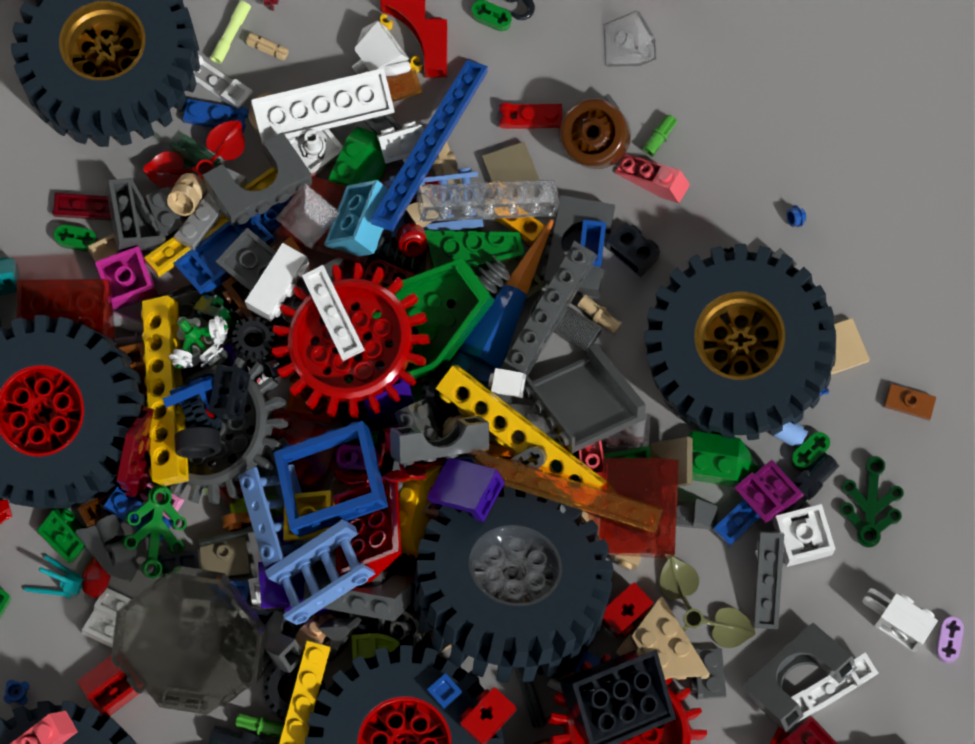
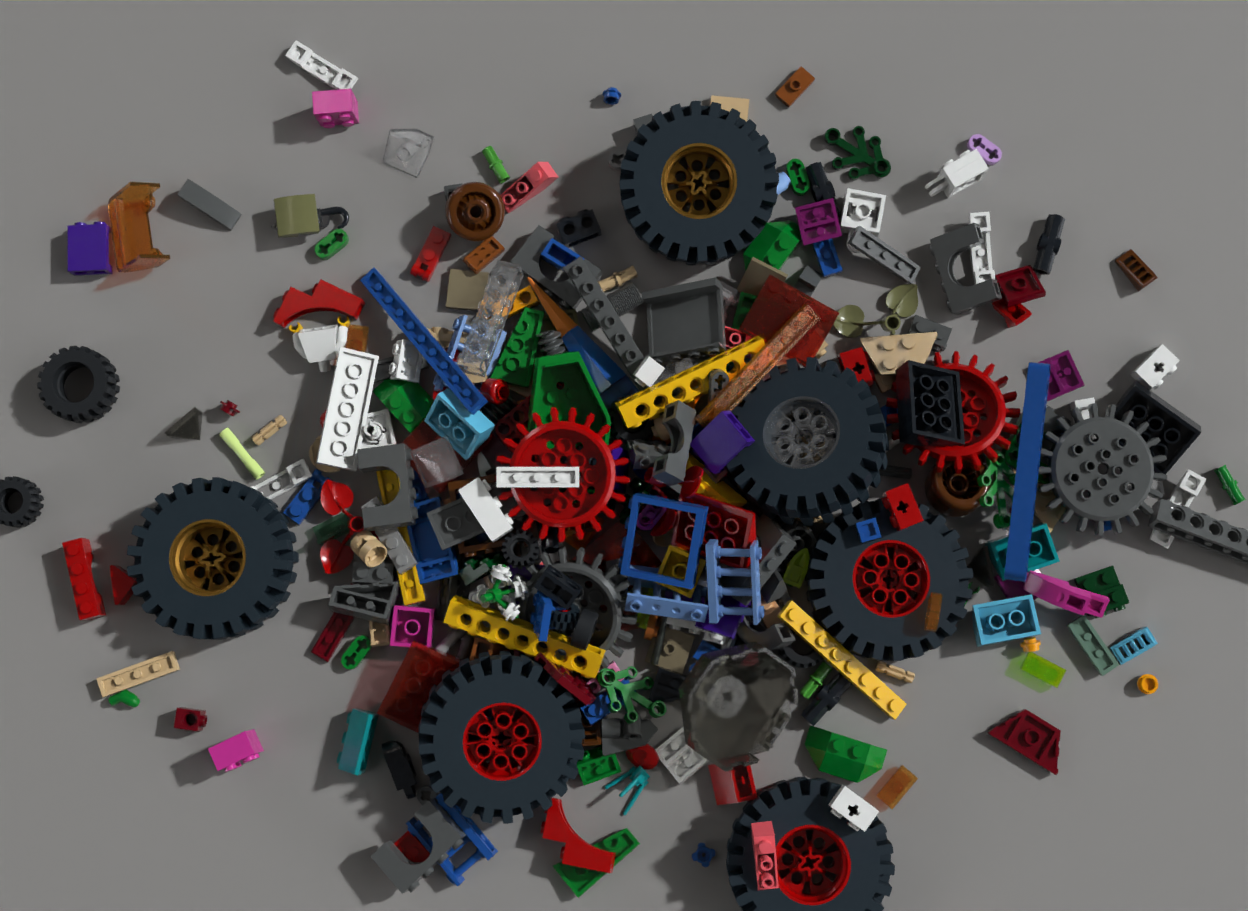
camera: 60 degrees left, 10 degrees up
(556, 167) = (483, 254): none -> dark orange plate

